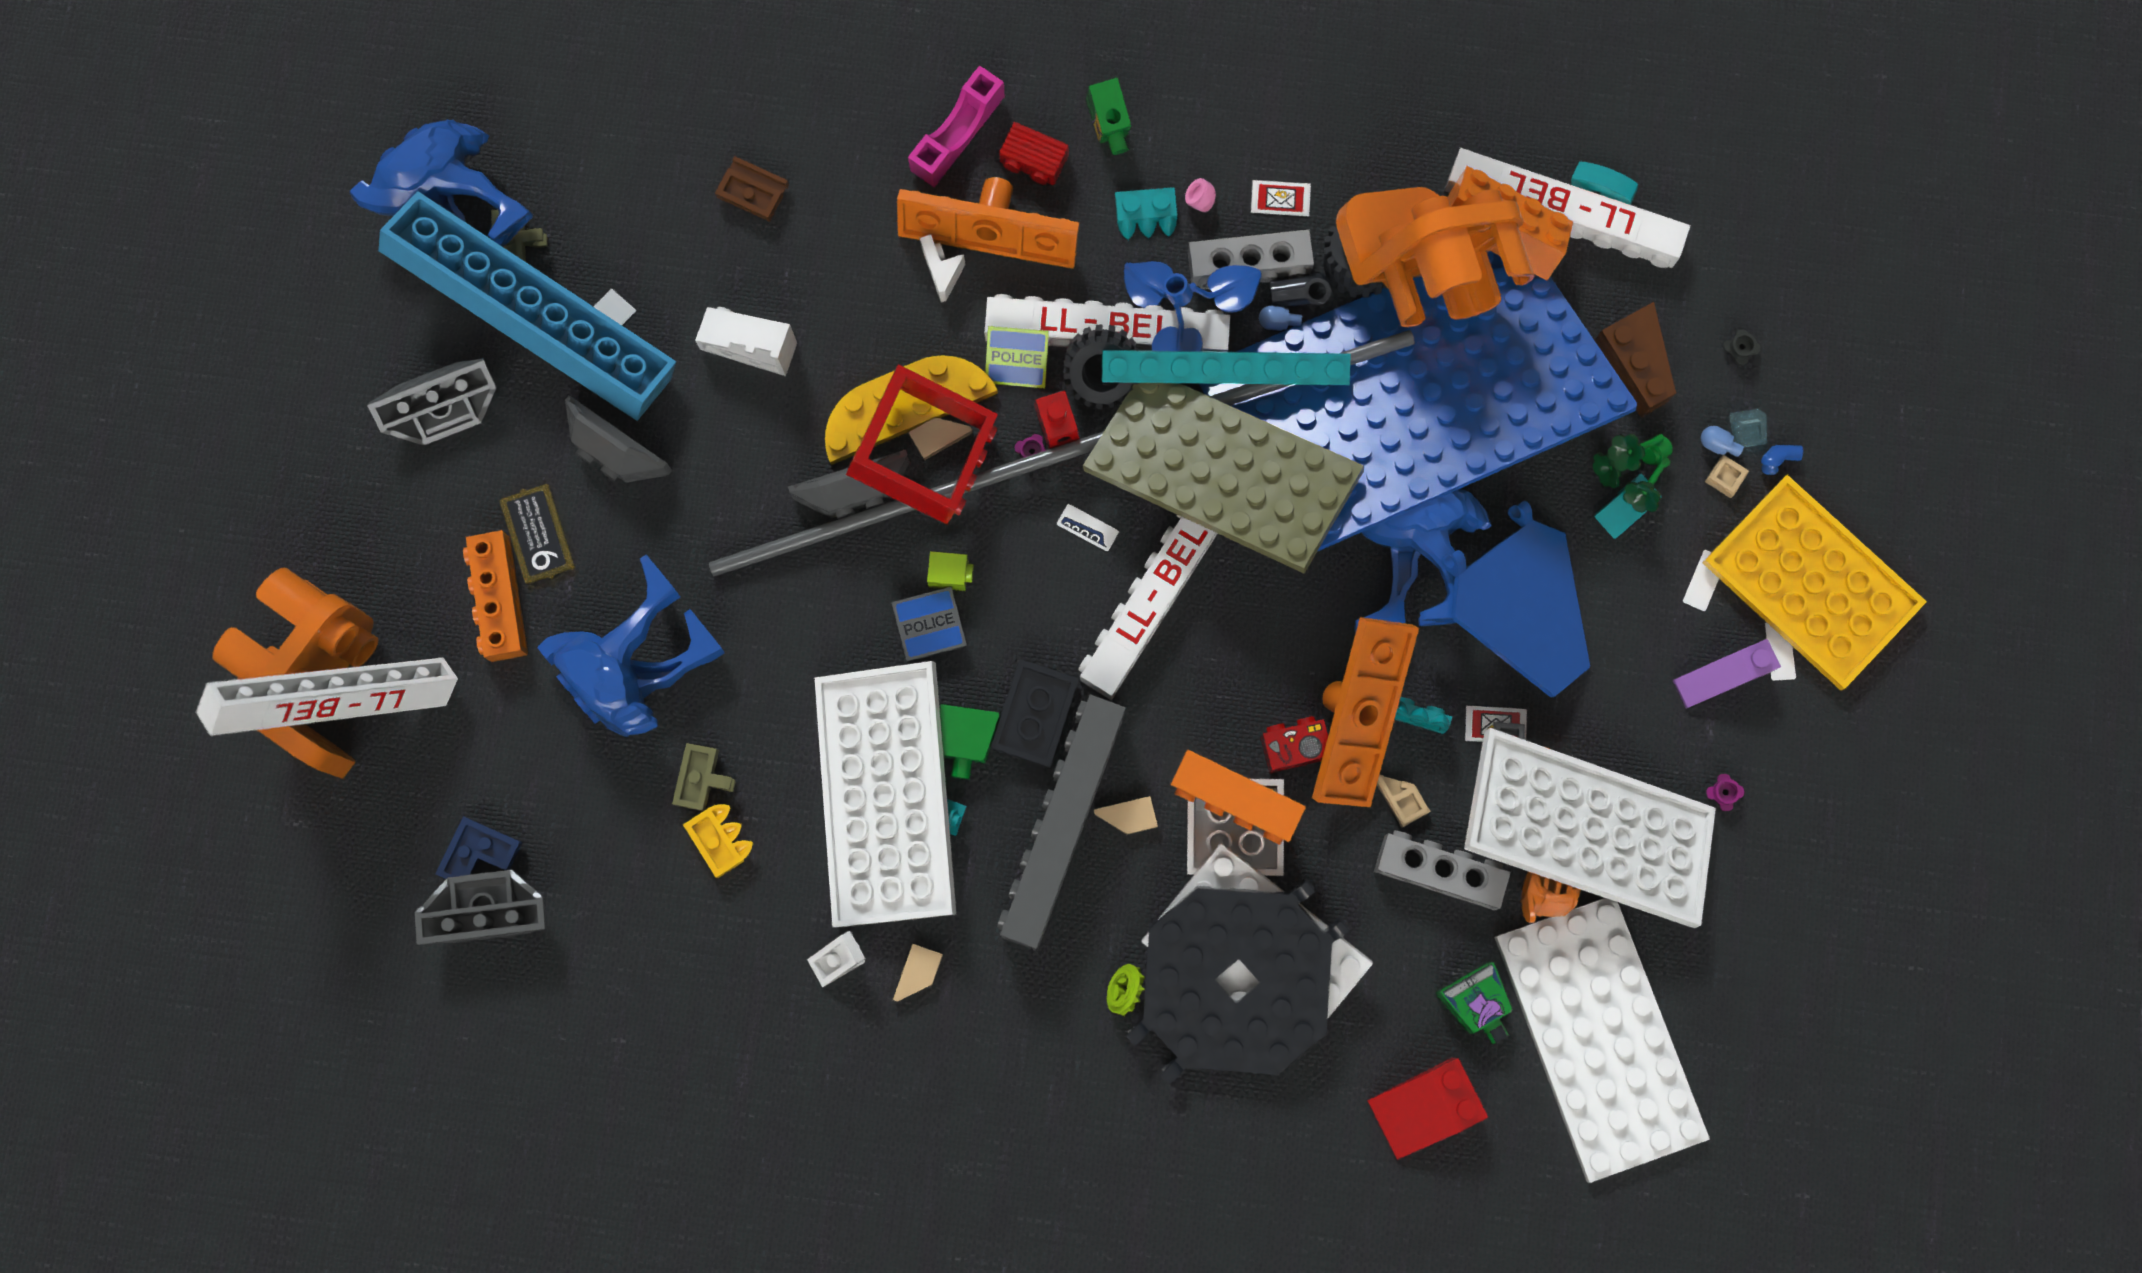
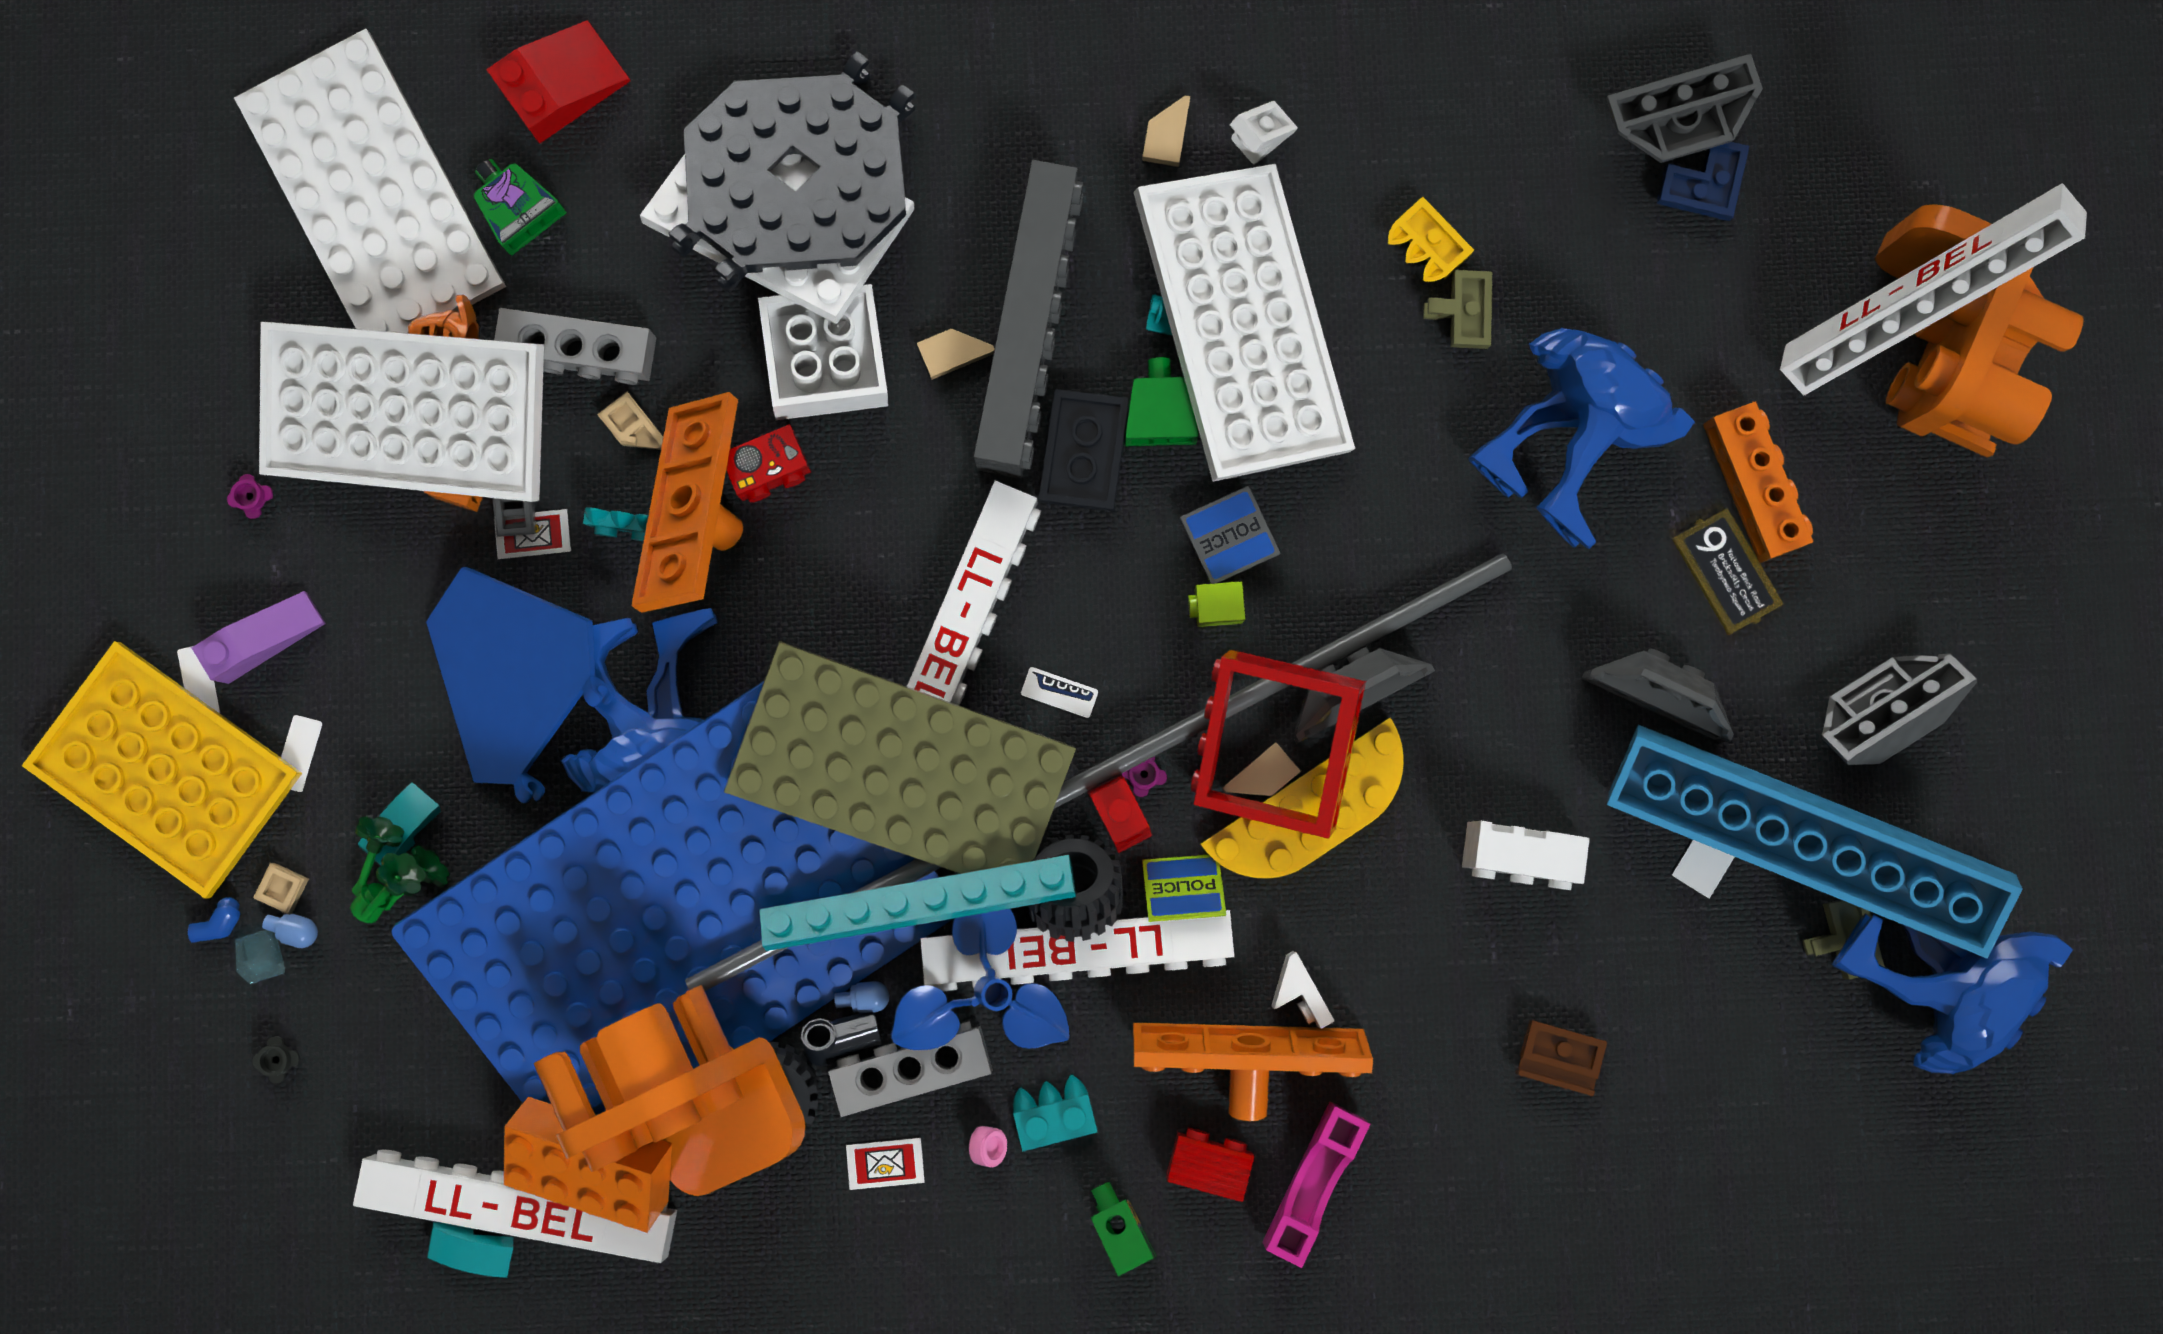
camera: 170 degrees right, 5 degrees up
(1120, 1000) = (933, 145): lime gear -> none
(1237, 795) = (820, 365): orange brick -> none
(1639, 358) = (402, 1018): reddish brown wedge -> none

